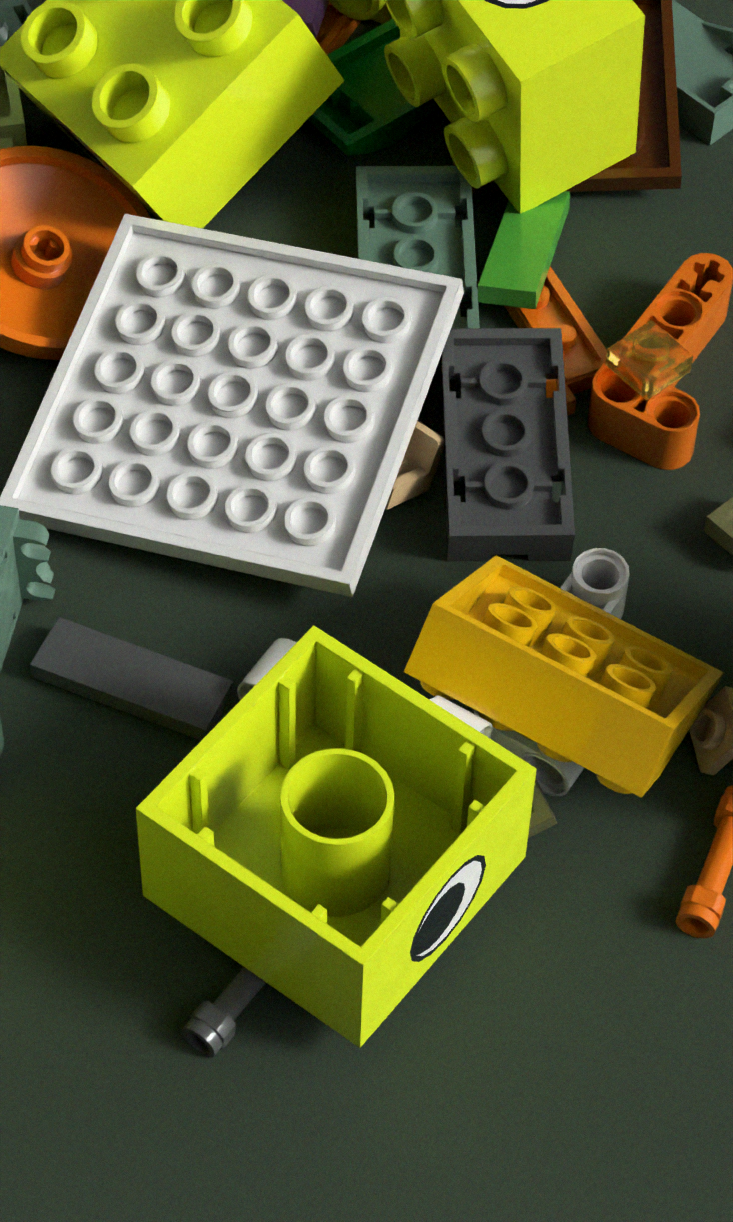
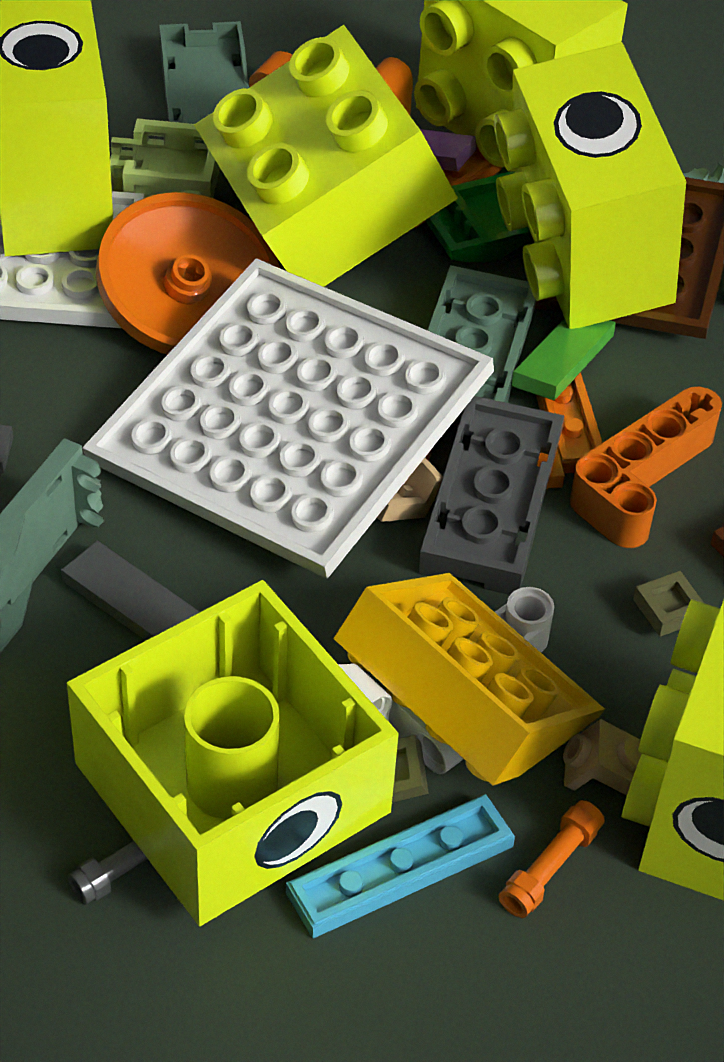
camera: 15 degrees right, 5 degrees down
(551, 915) = (399, 865): none -> medium azure tile
(649, 360) = (627, 455): clear yellow plate -> none

